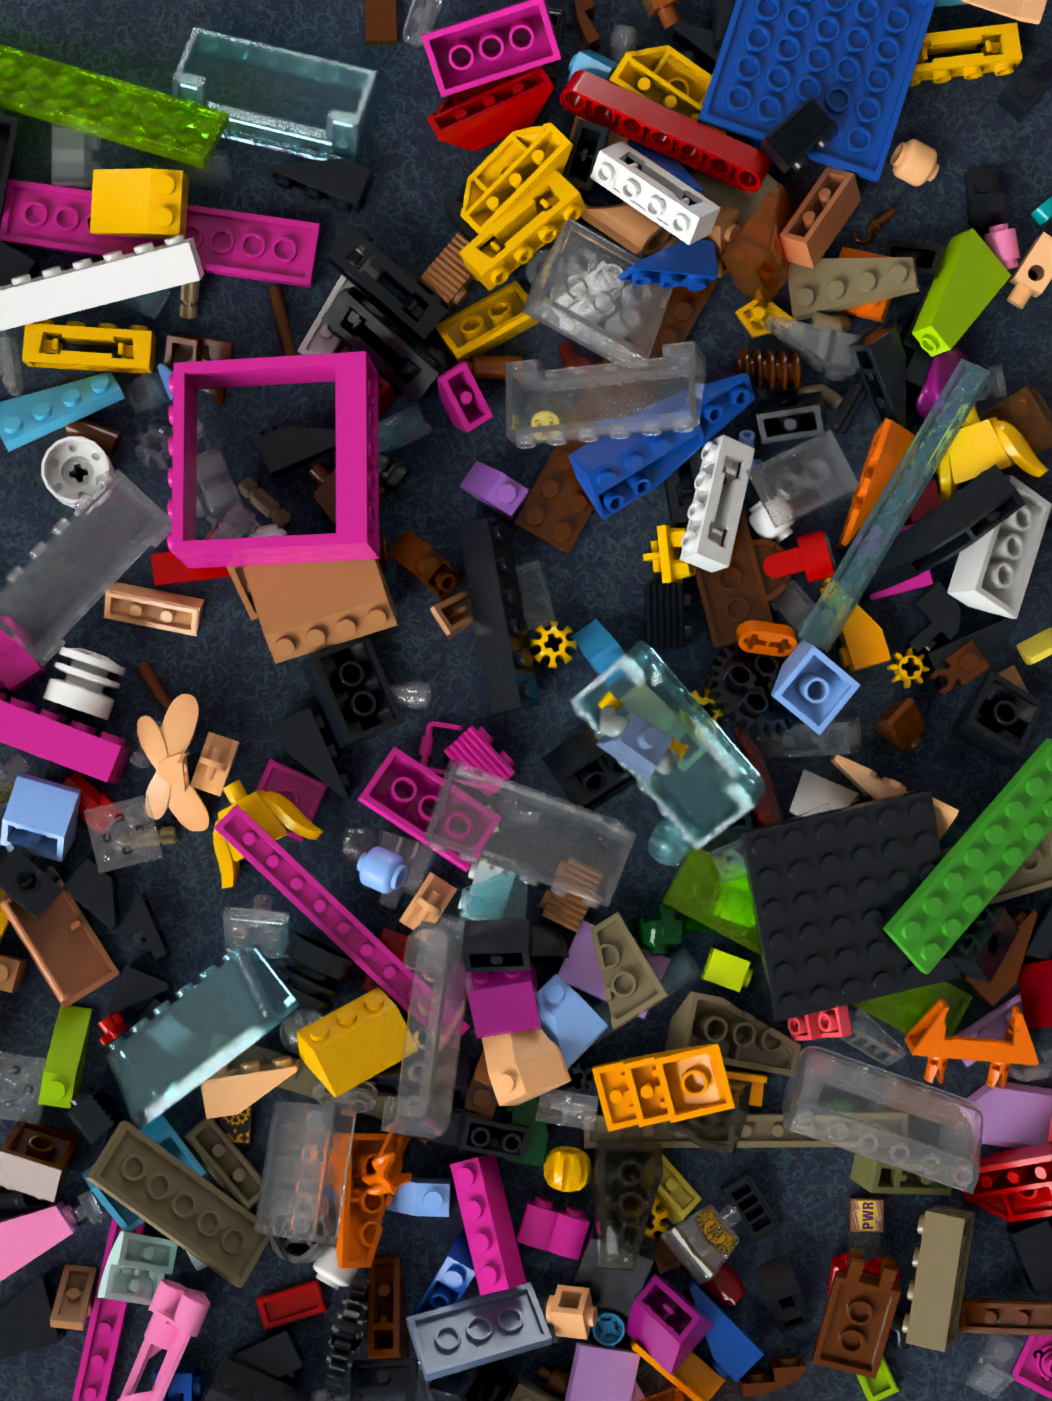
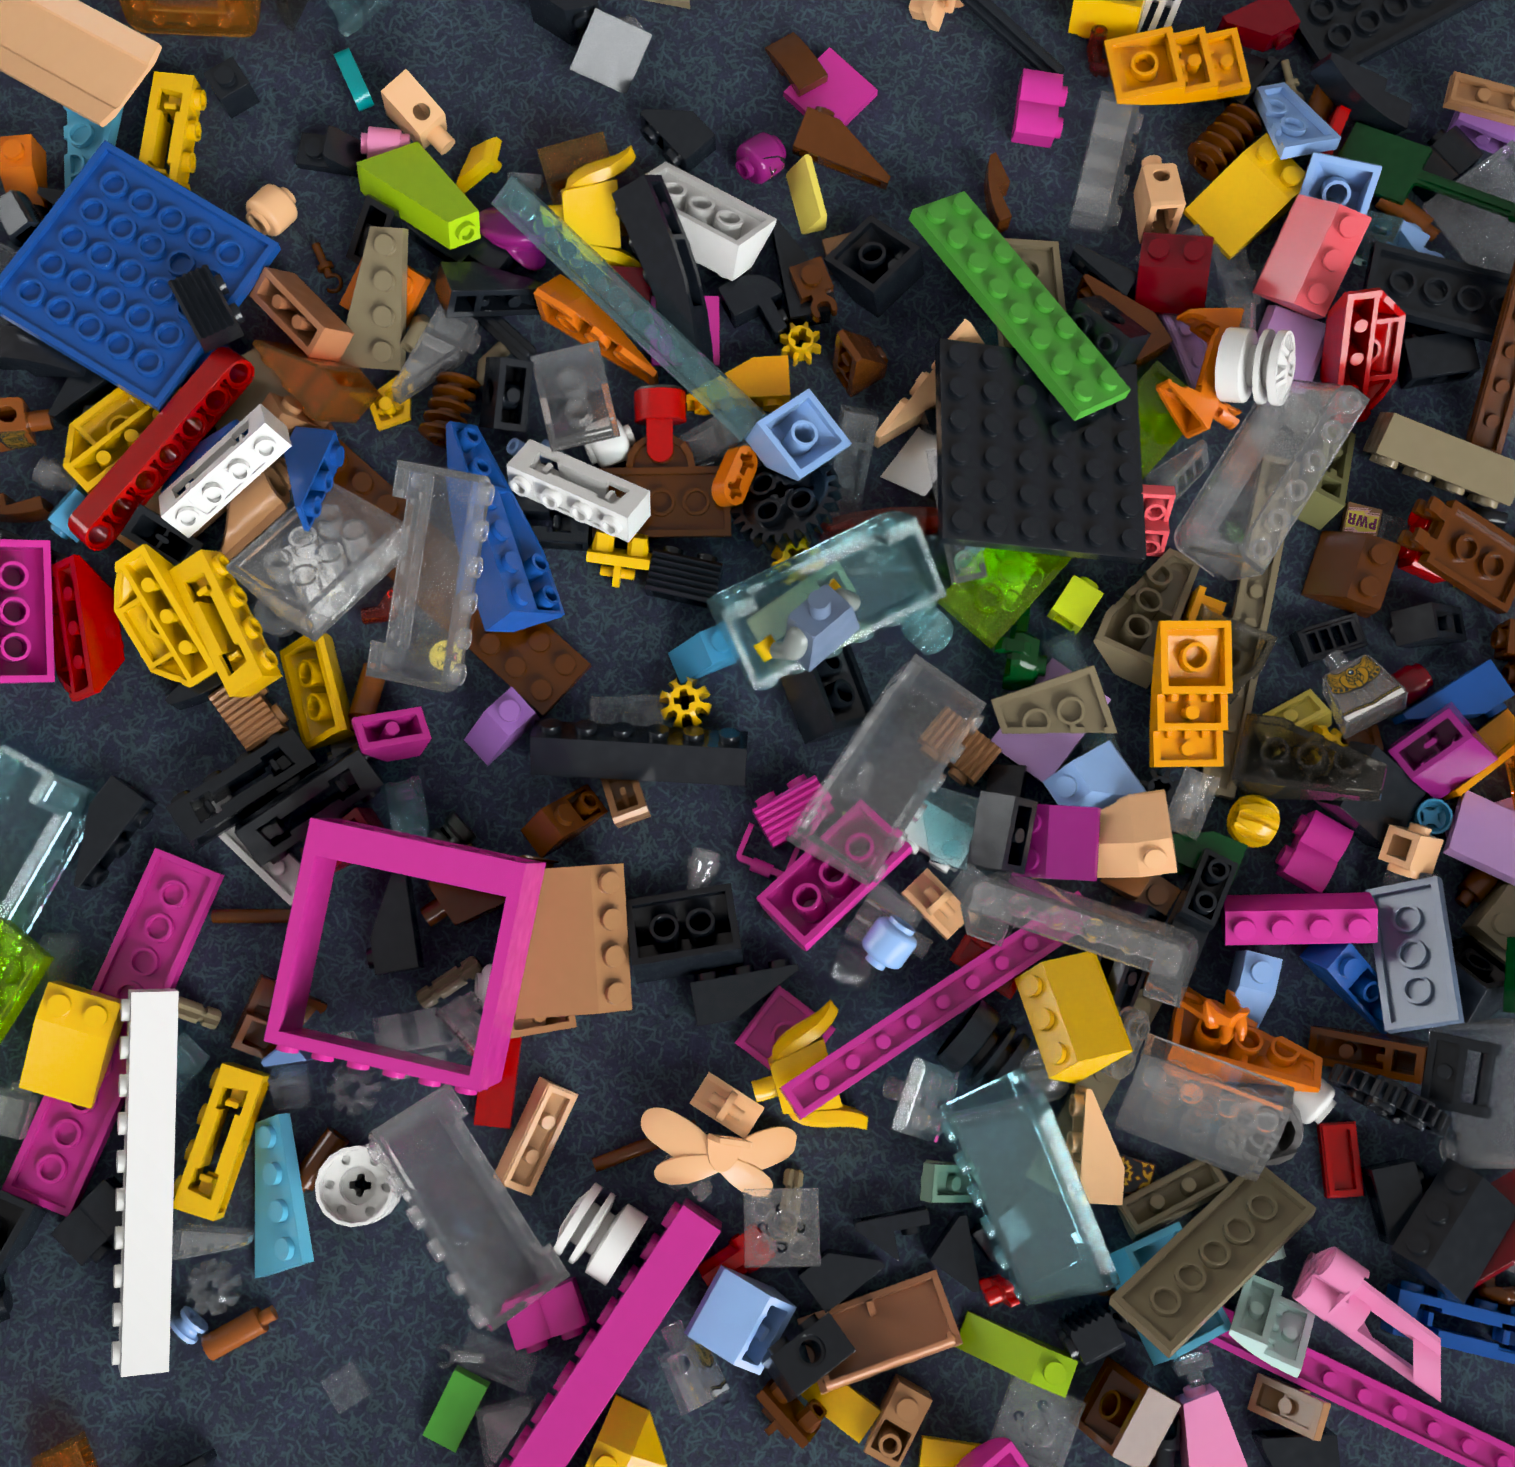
camera: 75 degrees left, 5 degrees down
(191, 961) = (943, 1183): none -> sand green slope
(817, 1213) = (1351, 571): none -> reddish brown slope
(980, 1083) = (1255, 366): none -> white wheel
(1006, 336) = (479, 163): none -> yellow piece

